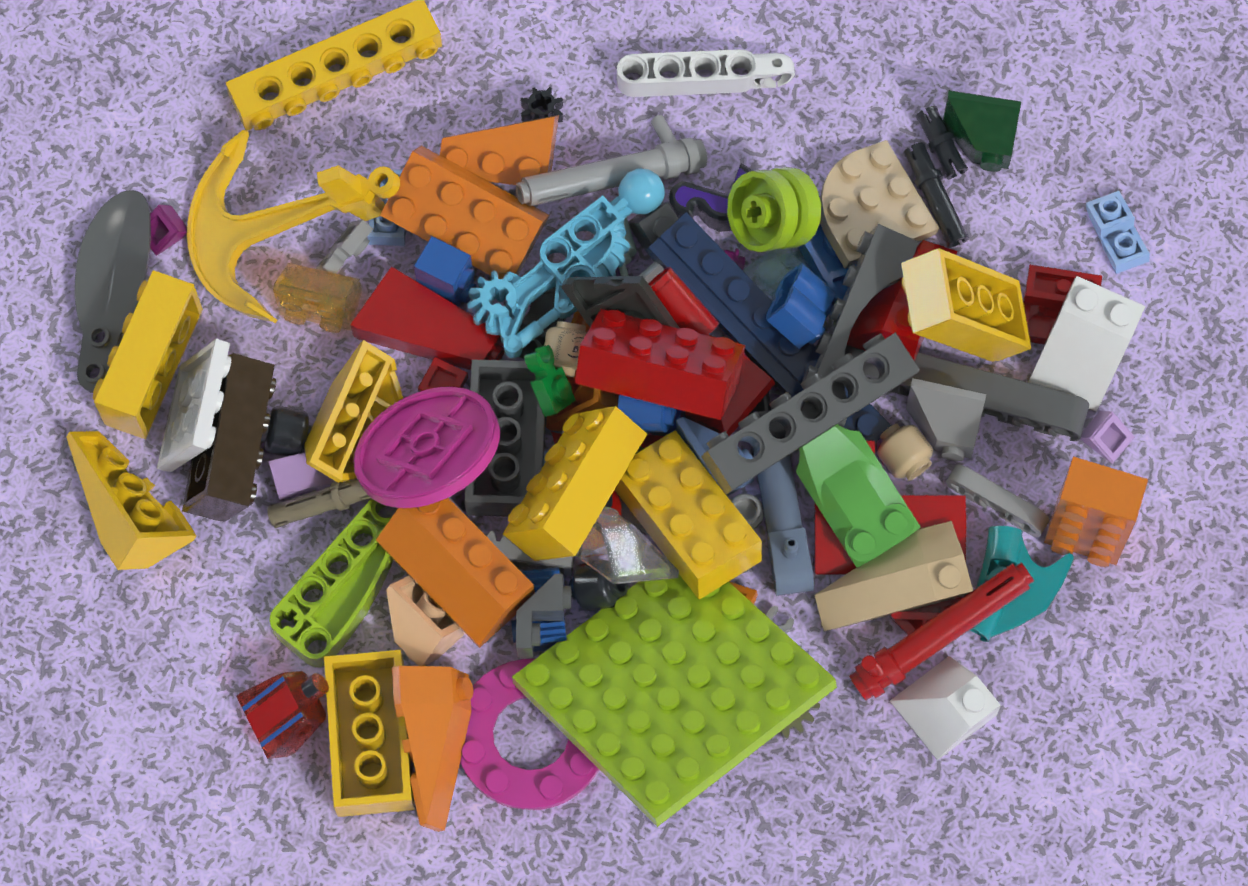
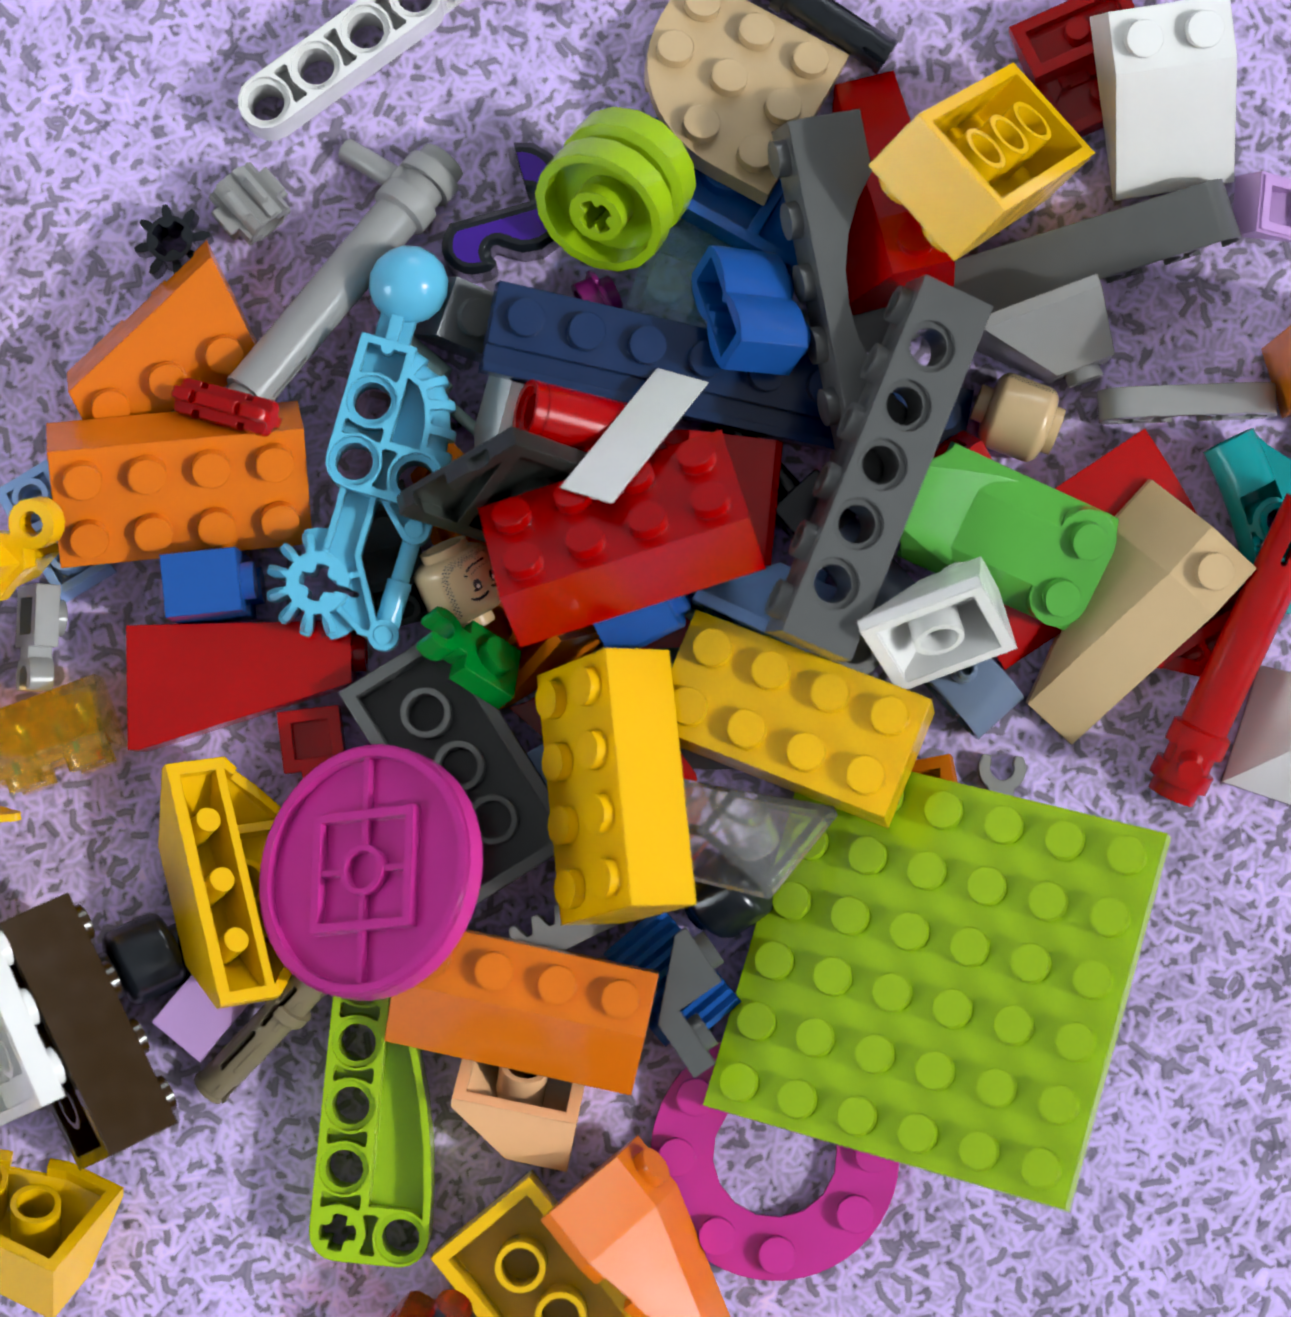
camera: 35 degrees left, 15 degrees up
(512, 189) = (226, 407): none -> red axle
(592, 113) = (249, 203): none -> light grey gear
(700, 321) = (634, 435): none -> white sticker
(789, 507) = (939, 625): none -> white slope

